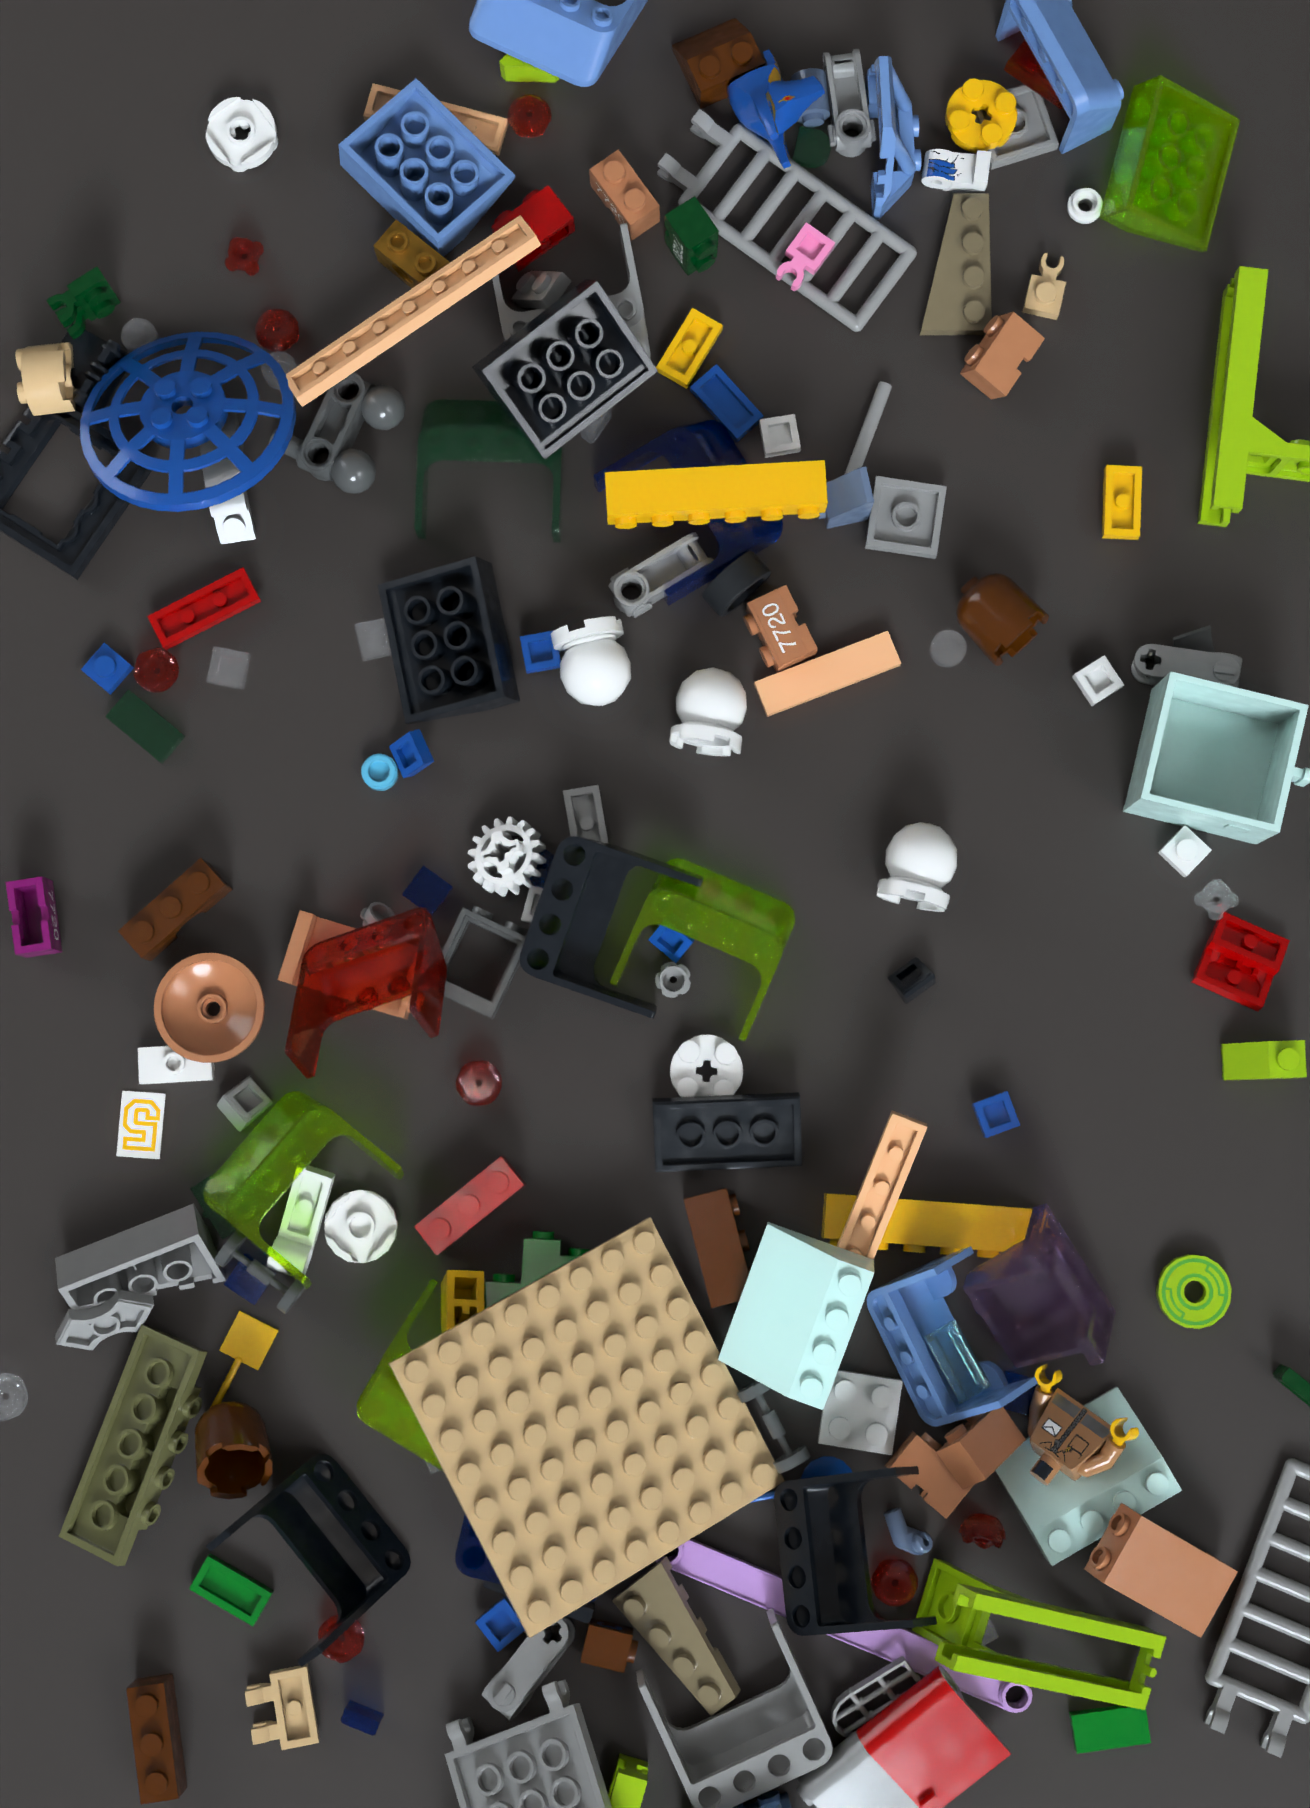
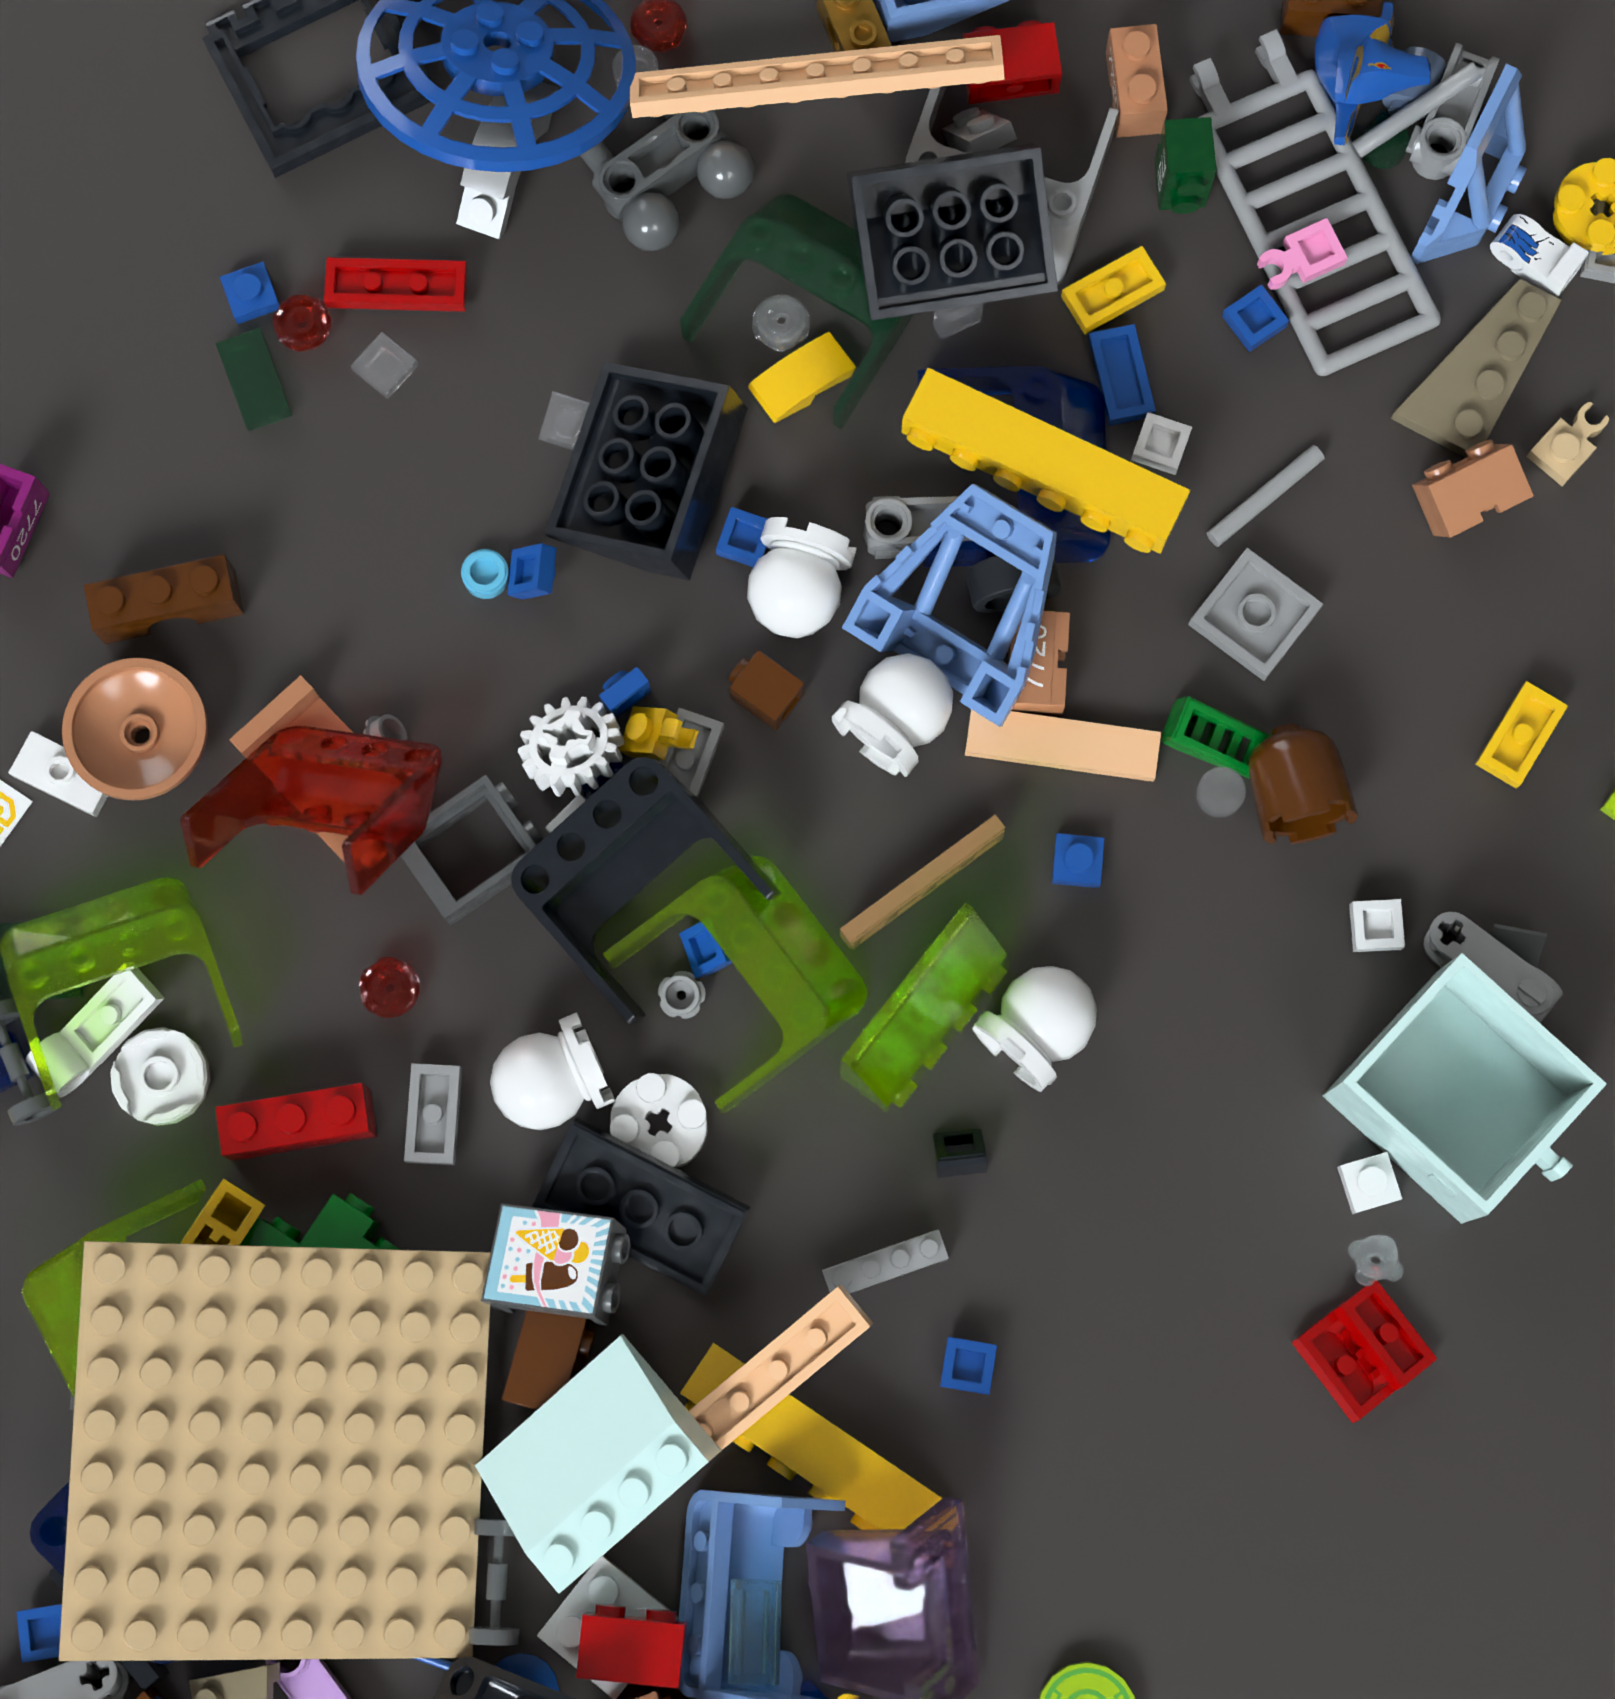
camera: 30 degrees right, 5 degrees down
(244, 1103) = (112, 861): light grey slope -> none
(427, 890) = (460, 737): clear blue tile -> none
(482, 502) = (785, 335): none -> clear plate
(515, 521) = (801, 376): none -> yellow slope
(519, 799) = (624, 691): none -> blue plate
(555, 816) = (653, 732): none -> yellow plate
(556, 1149) = (433, 1114): none -> light grey plate
(612, 746) = (765, 689): none -> reddish brown brick
(620, 1083) = (547, 1077): none -> white tile
(684, 654) = (976, 672): none -> medium blue windscreen
(695, 1200) = (556, 1263): none -> panel
(789, 817) = (922, 882): none -> medium nougat tile
(794, 316) = (1255, 318): none -> blue plate
(824, 114) = (1416, 109): none -> light grey bar
(840, 901) = (925, 1010): none -> clear neon green slope
(848, 499) = (1195, 554): sand blue slope -> none
(880, 745) = (1077, 860): none -> blue plate
(886, 1416) = (631, 1647): none -> red brick
(901, 617) = (1177, 723): none -> green slope
(905, 1079) = (887, 1263): none -> light grey piece
(1264, 1060) = (1325, 1483): lime slope -> none

